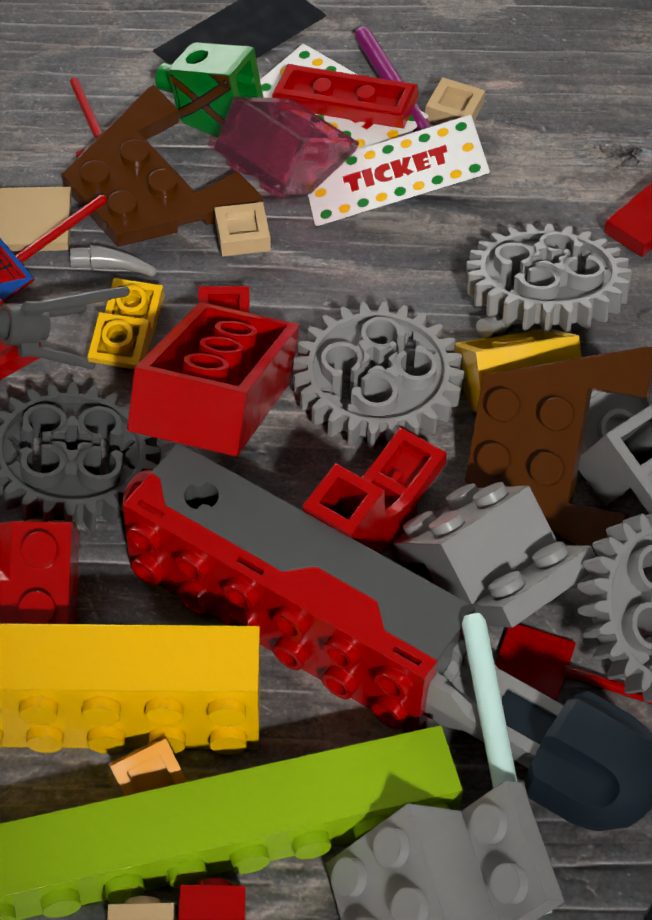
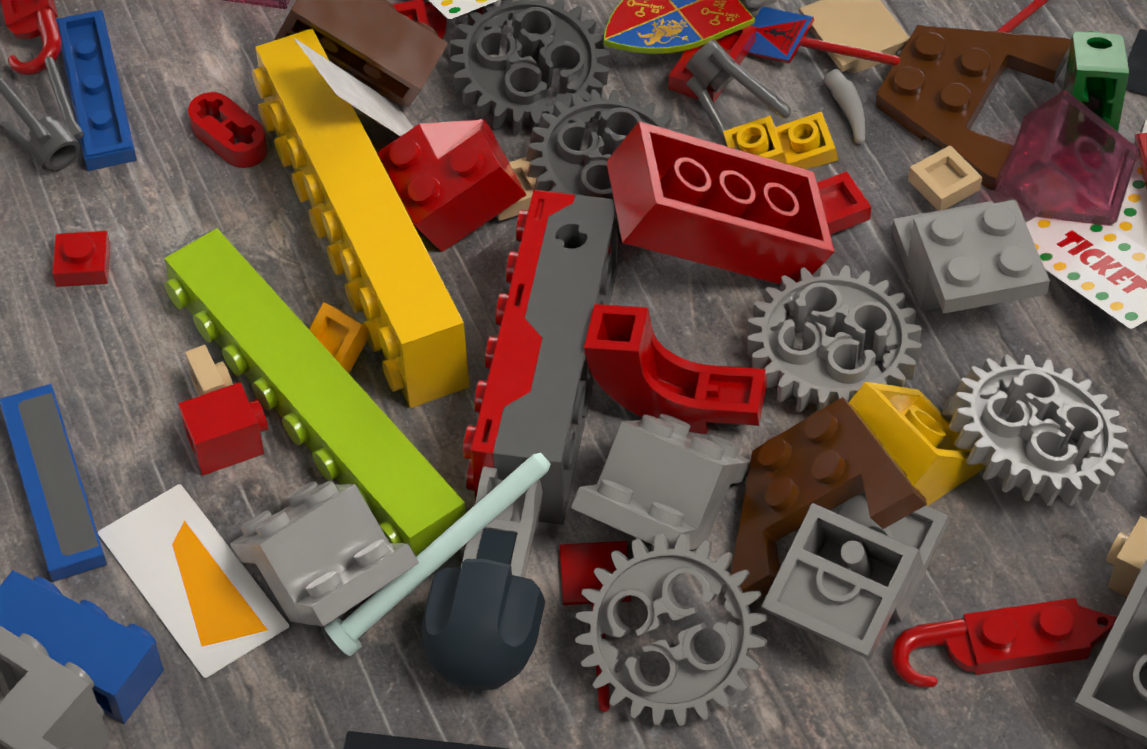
camera: 70 degrees right, 0 degrees up
(362, 231) = (970, 256): none -> light grey bracket

